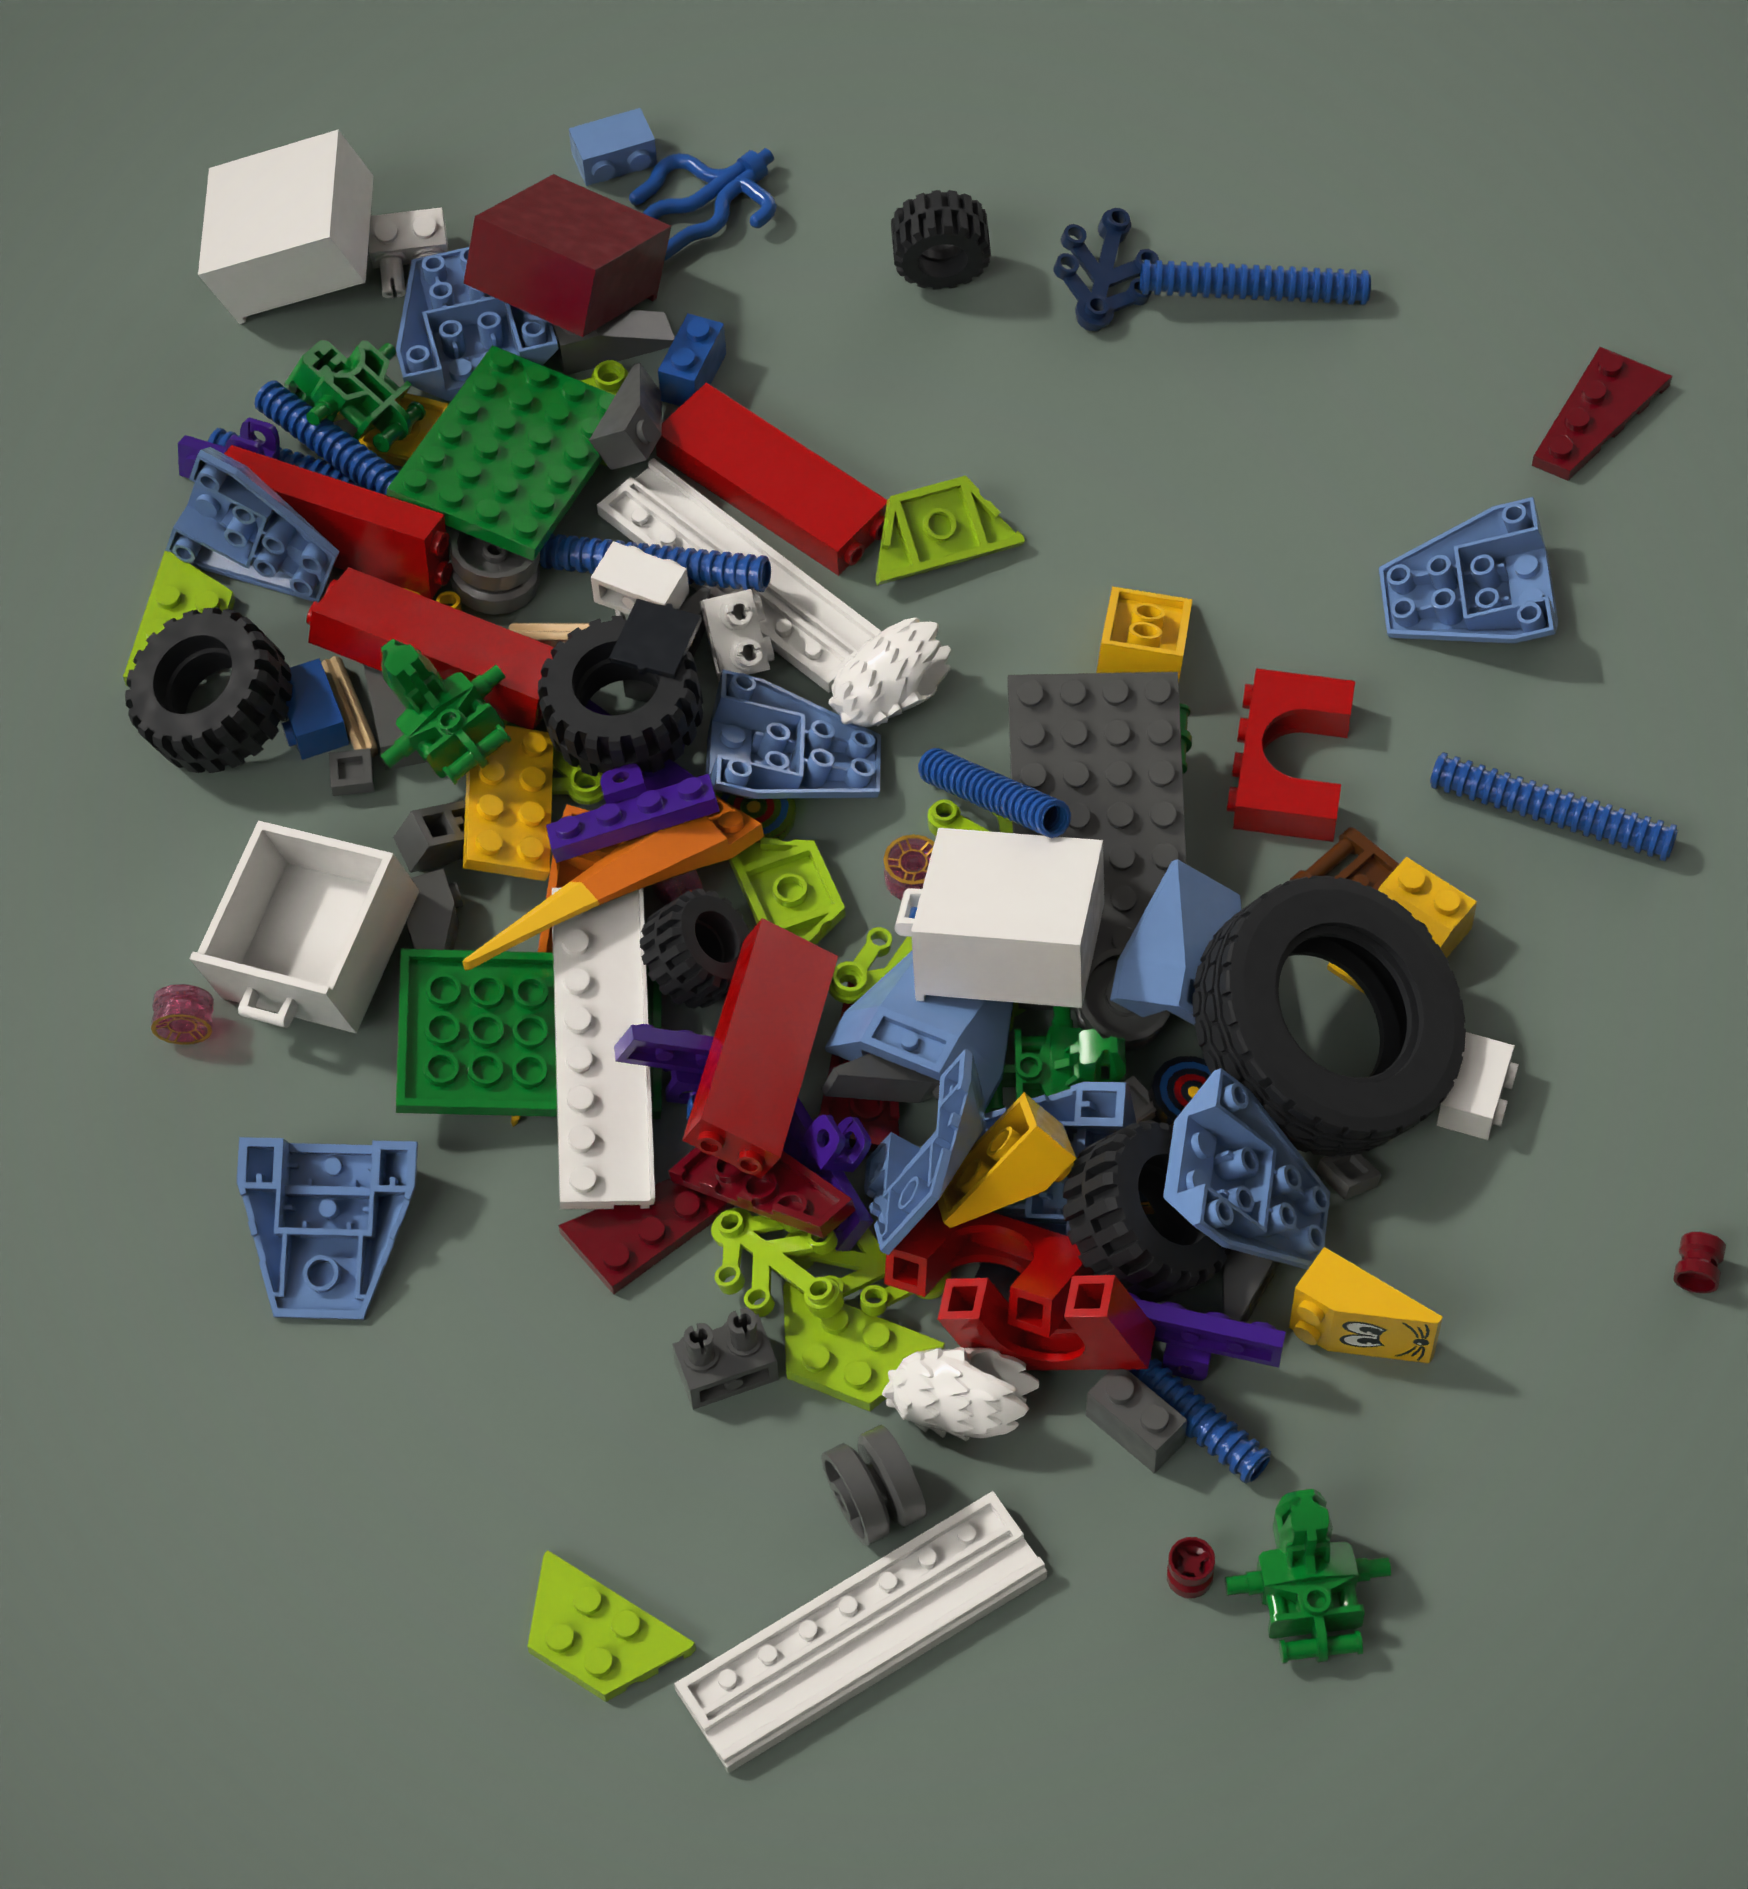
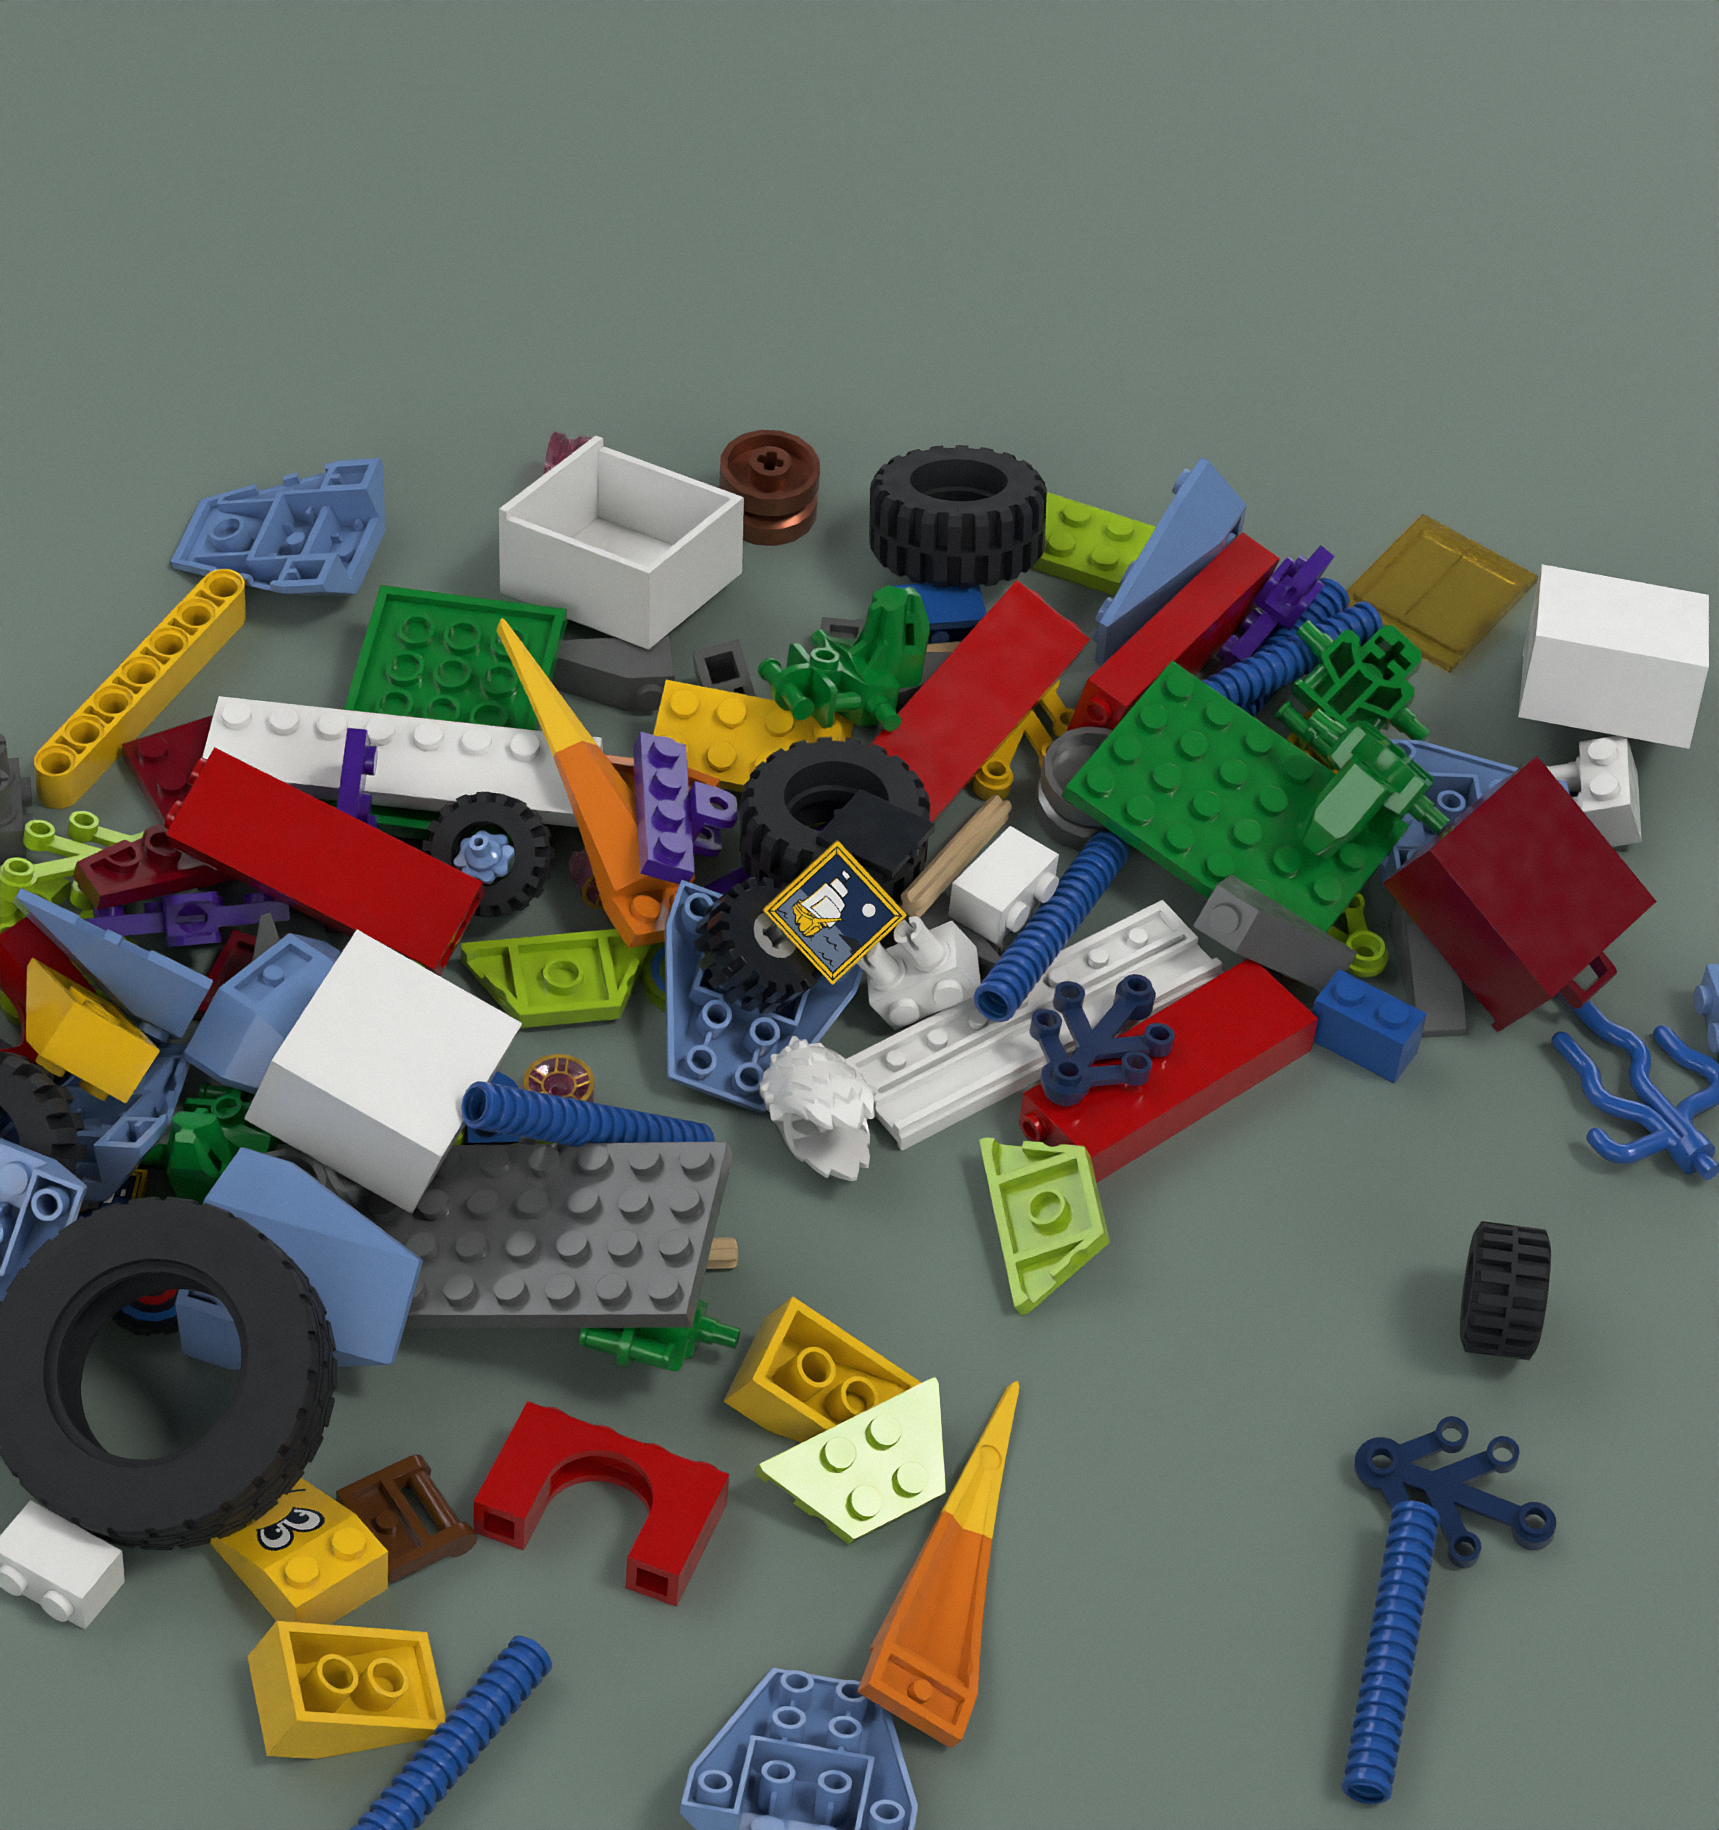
camera: 95 degrees right, 10 degrees down
(178, 854) = (778, 483): none -> copper wheel
(184, 381) = (1441, 590): none -> clear yellow piece
(498, 337) = (1369, 778): none -> green piece
(529, 1270) = (139, 689): none -> yellow beam
(721, 934) = (485, 856): none -> medium blue plant
(740, 658) = (834, 912): none -> tile
(763, 722) = (750, 951): none -> black wheel
(821, 516) = (1070, 1079): none -> dark blue plant
(1203, 596) = (868, 1465): none -> wing
(1338, 535) = (931, 1638): none -> orange plate
(1514, 875) = (343, 1689): none -> yellow slope

